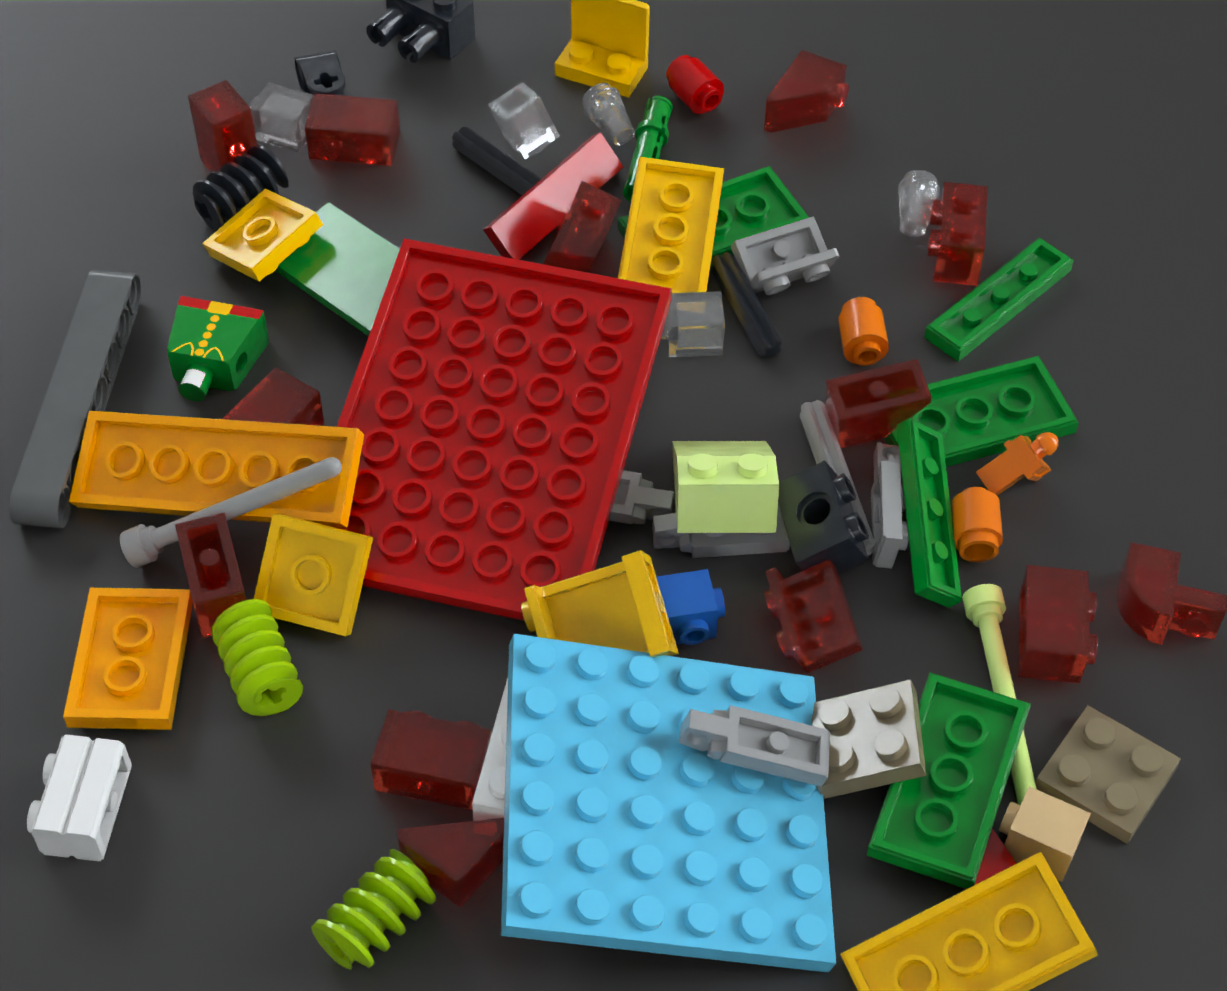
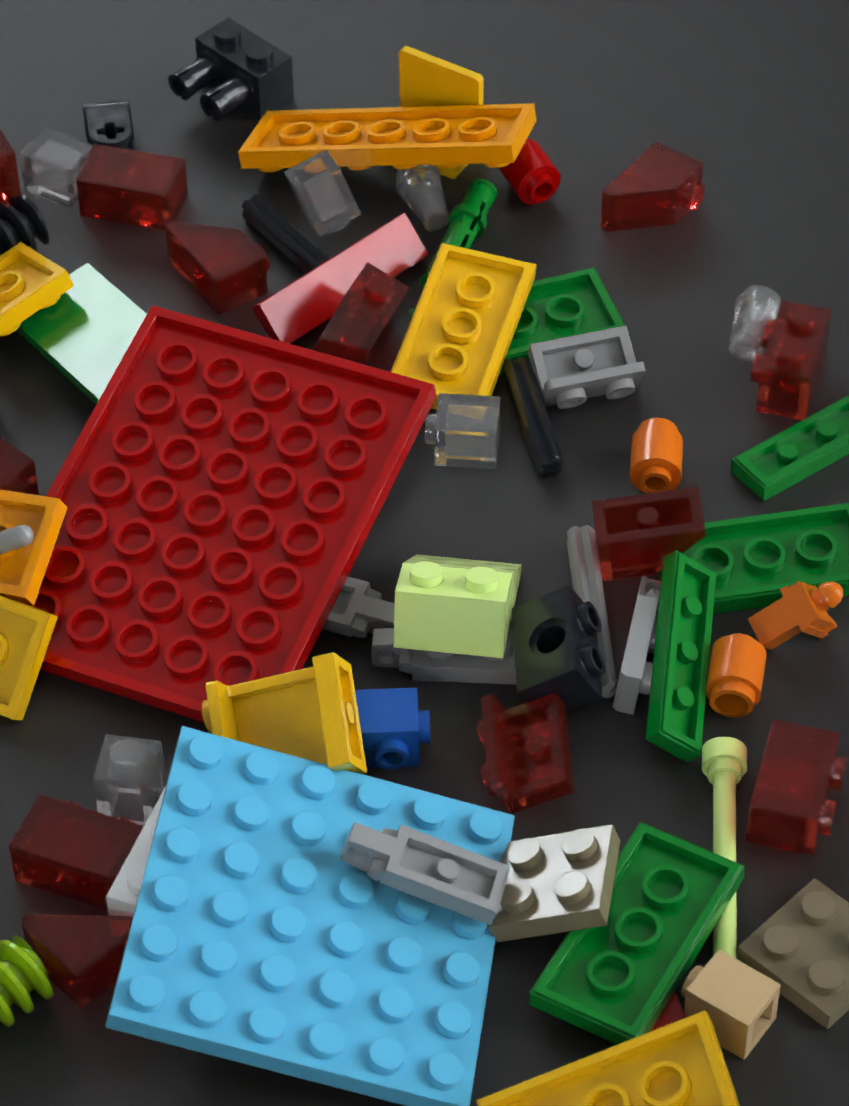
camera: 10 degrees right, 5 degrees down
(442, 192) = (218, 263): none -> clear red slope
(465, 683) = (129, 777): none -> clear brick
(573, 65) = (391, 136): none -> light orange plate

